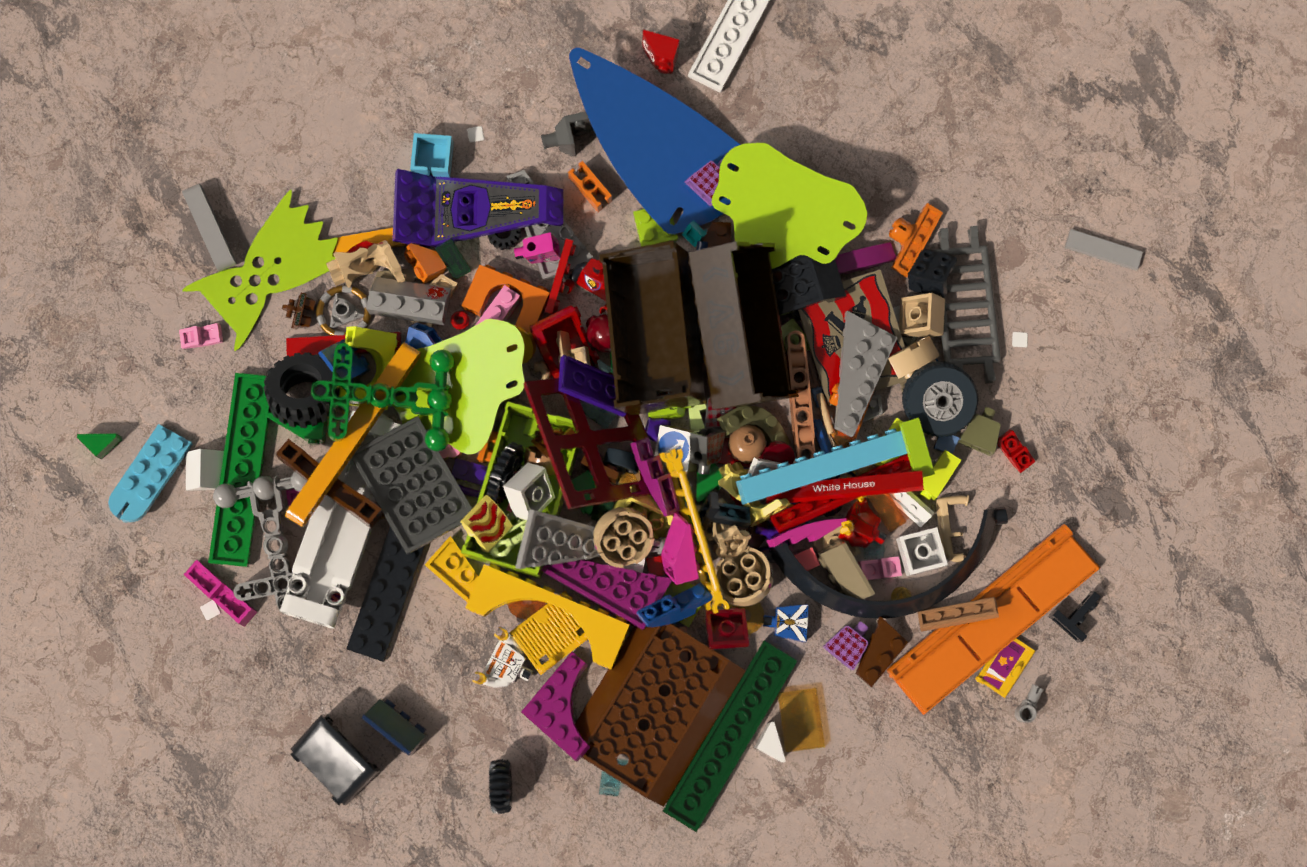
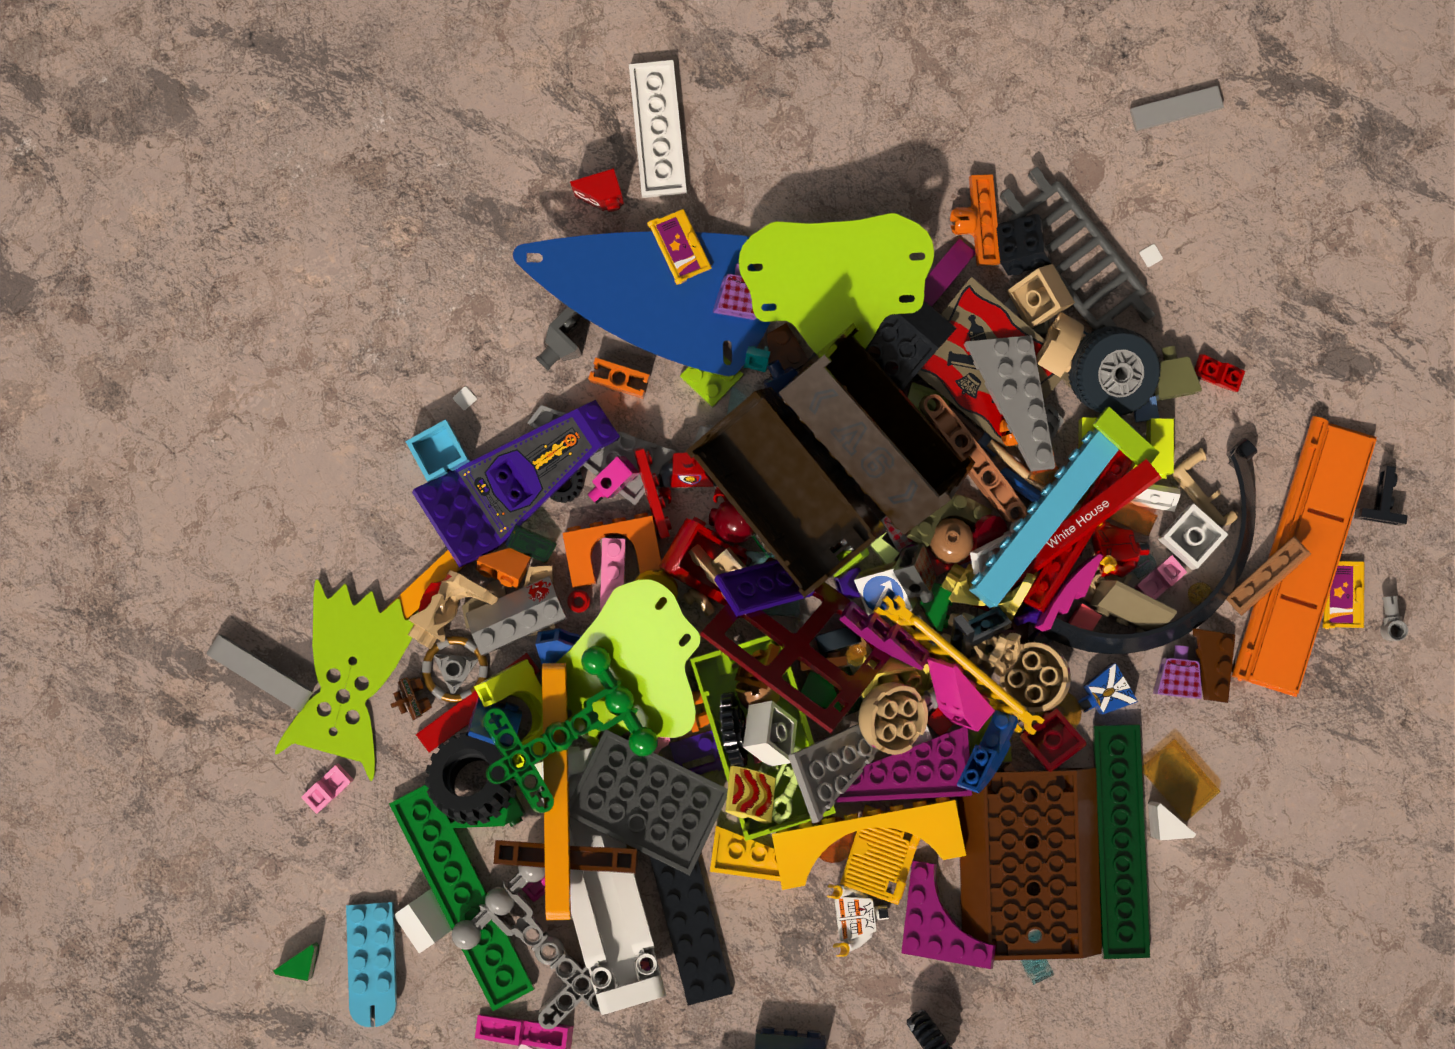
camera: 25 degrees left, 5 degrees up
(690, 117) = (675, 240): none -> door

